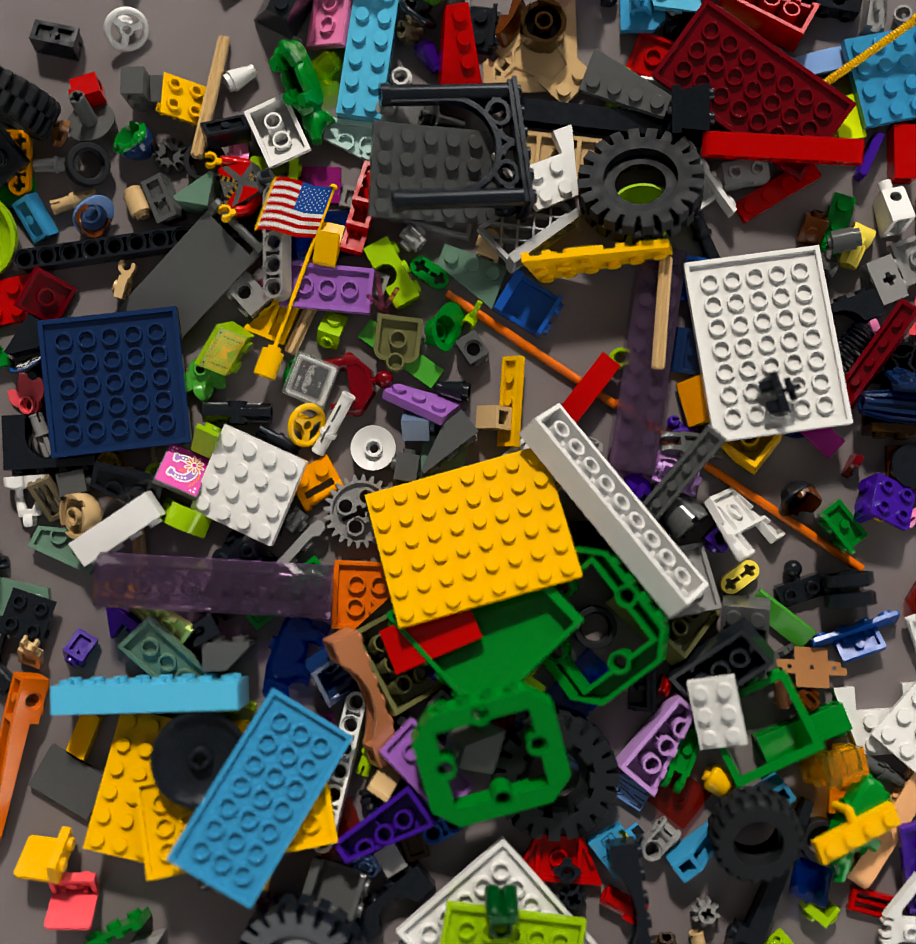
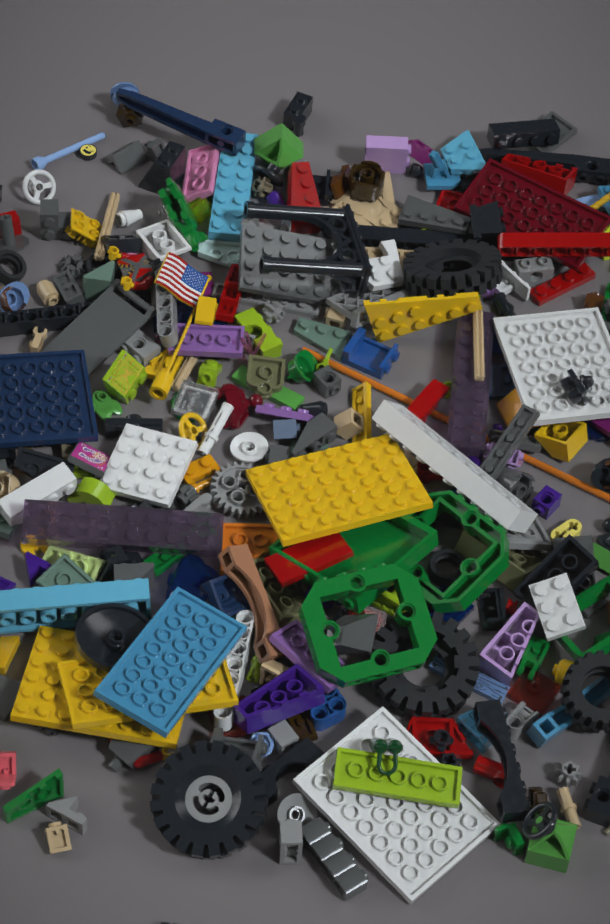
camera: 10 degrees left, 35 degrees down
(134, 141) = (47, 254): hair -> none
(205, 439) = (110, 435): lime slope -> none
(426, 277) = (288, 336): green beam -> none
(734, 516) = (561, 486): white wing -> none

